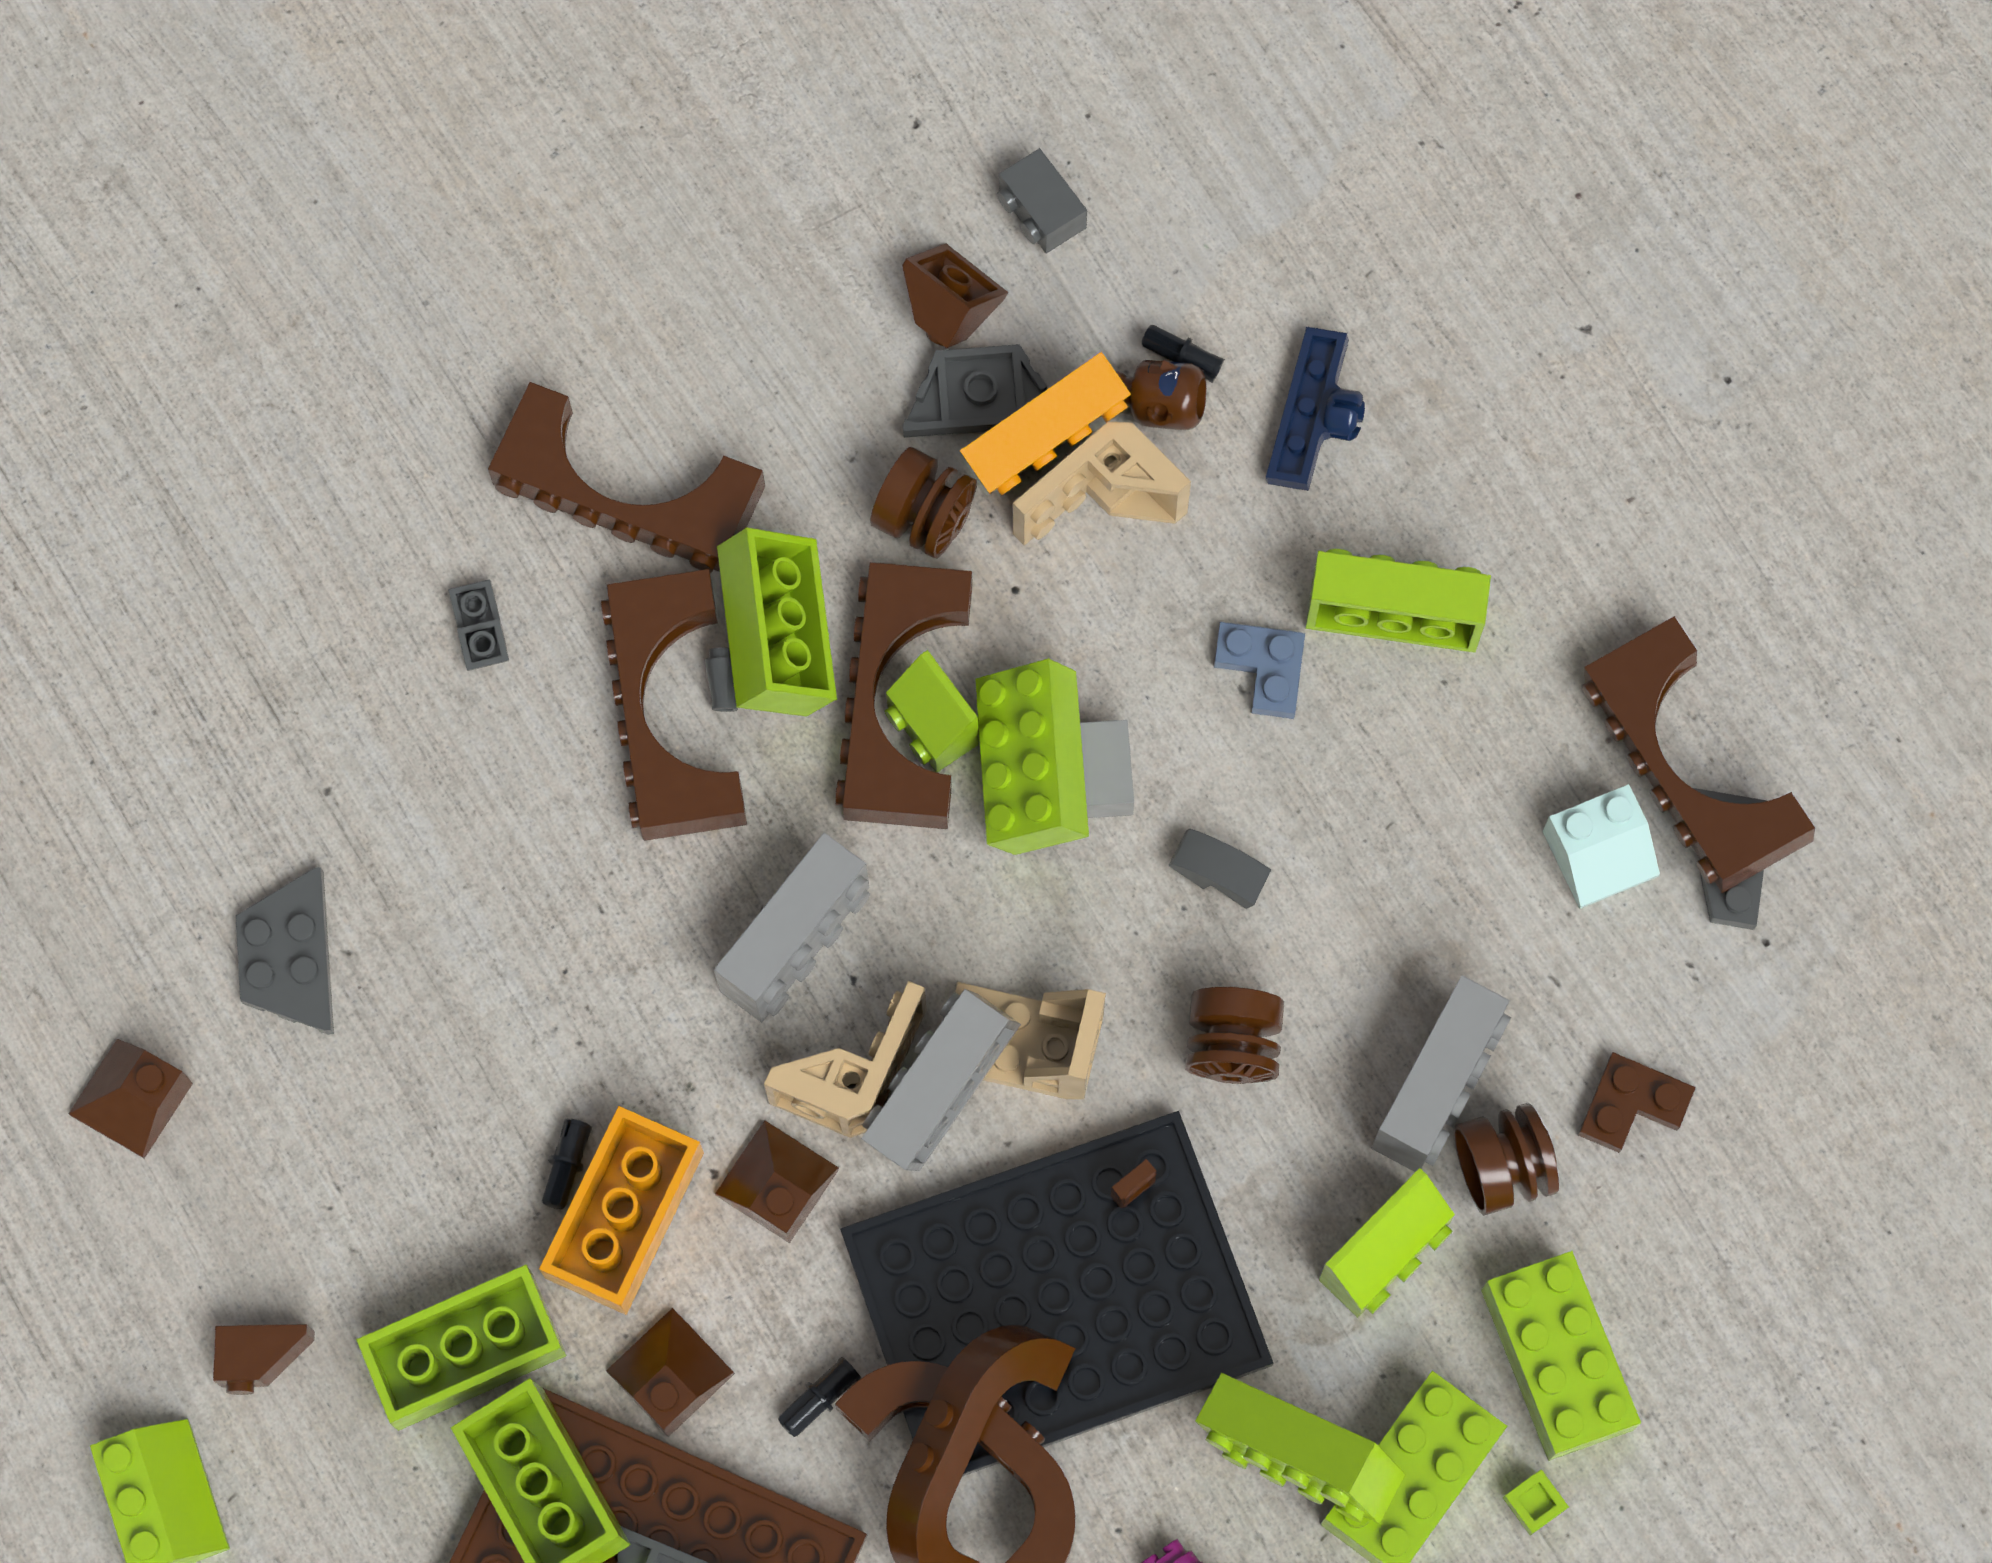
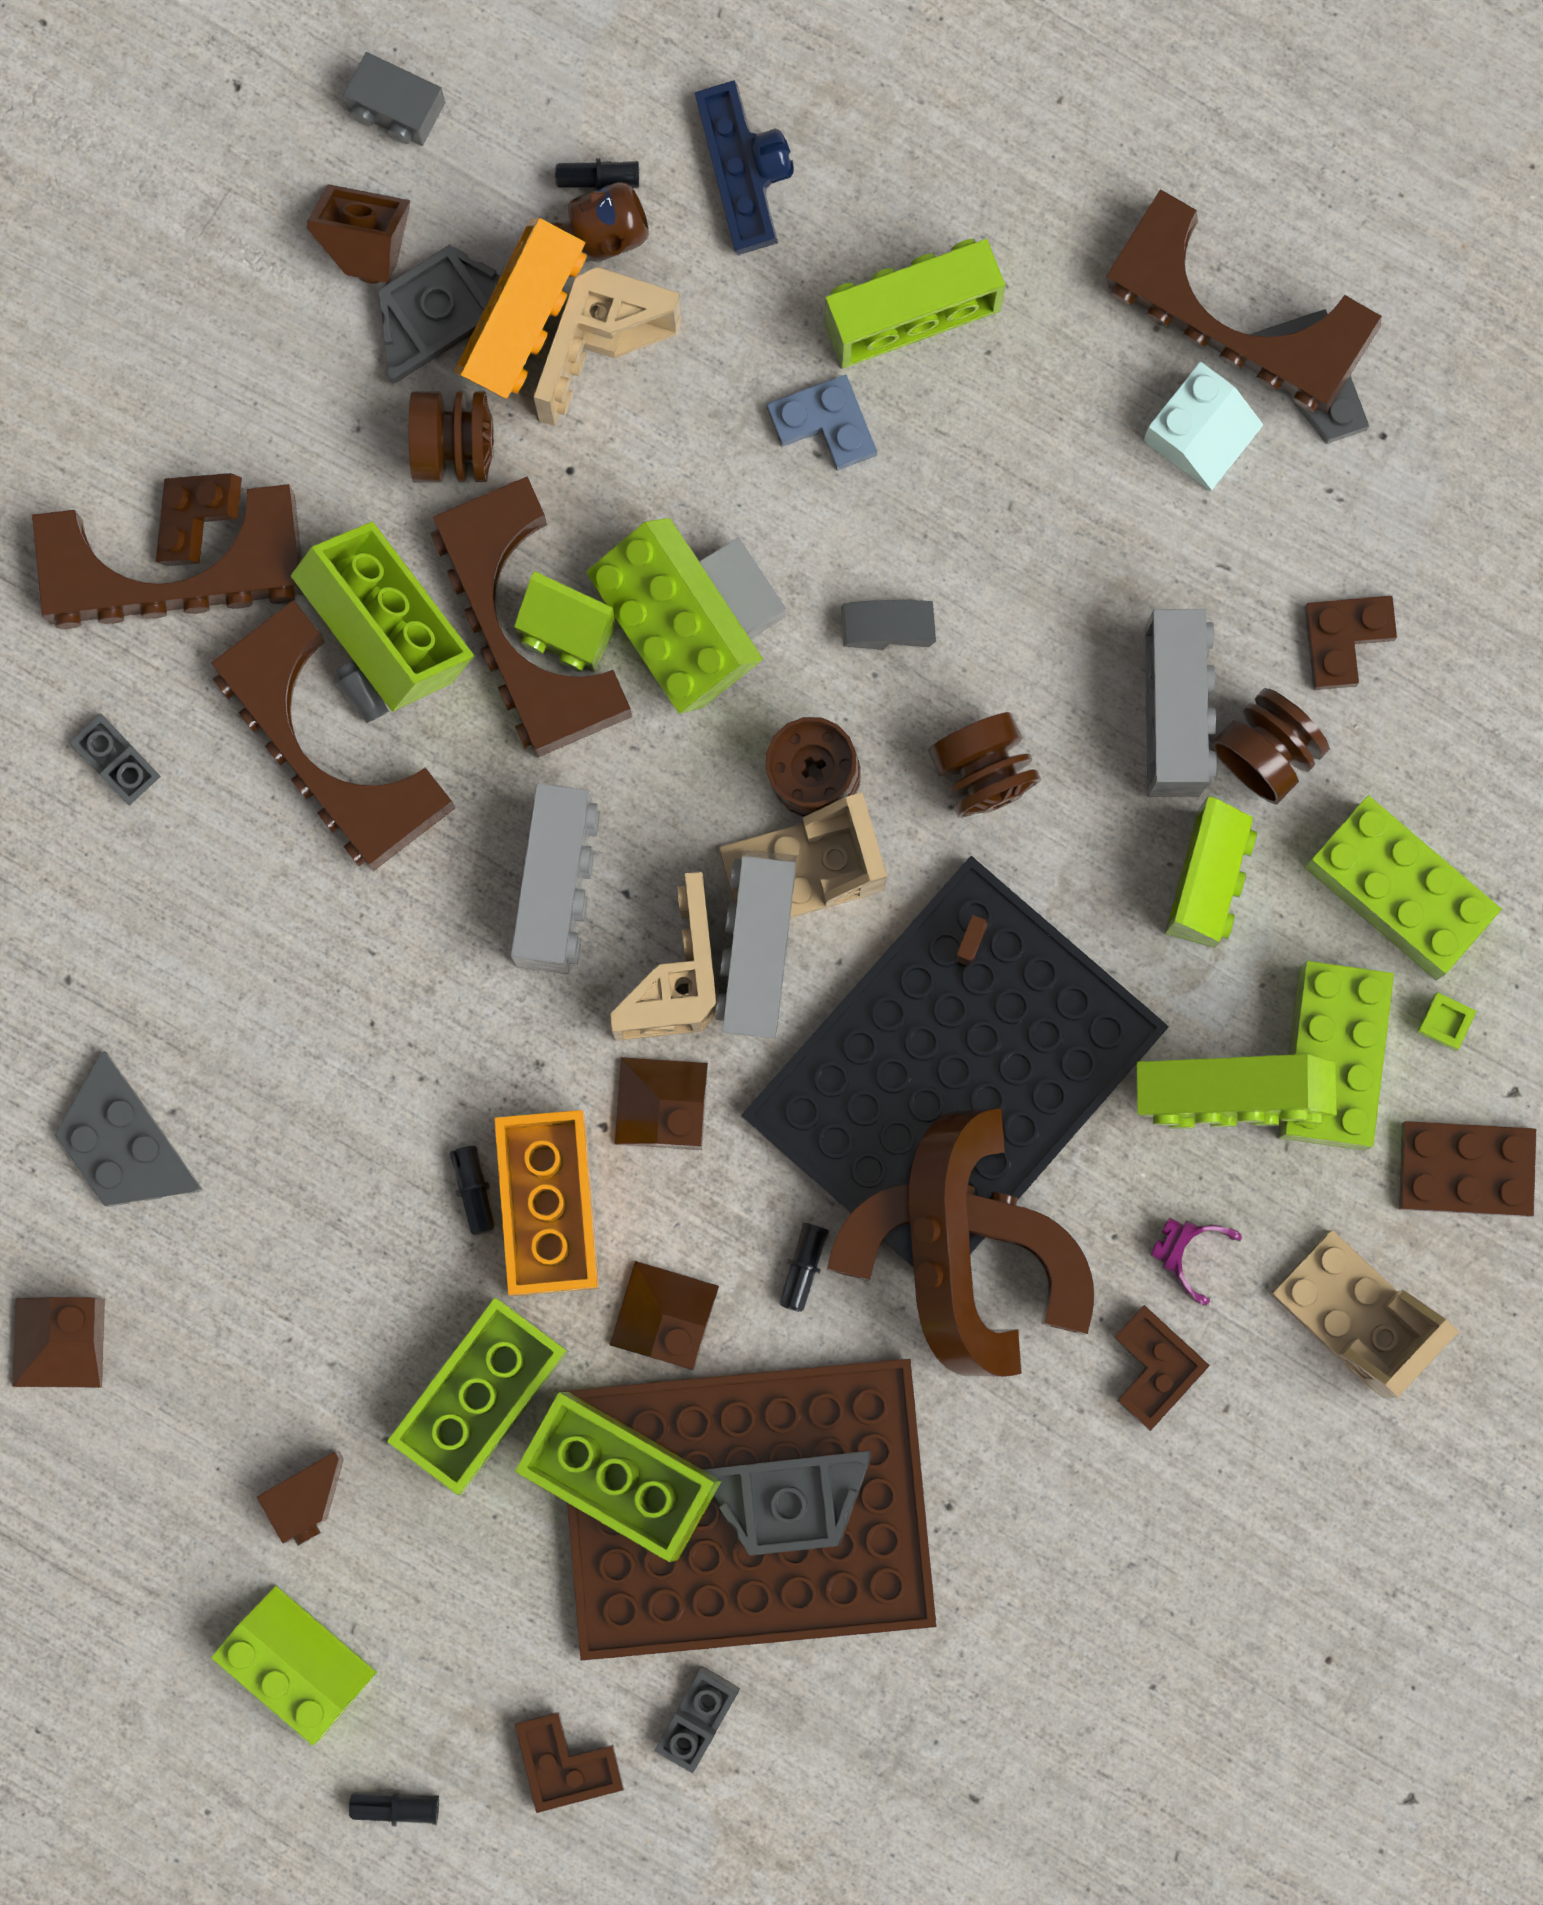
camera: 30 degrees left, 10 degrees up
(667, 445) = (185, 508): none -> reddish brown plate
(1076, 931) = (808, 743): none -> reddish brown wheel

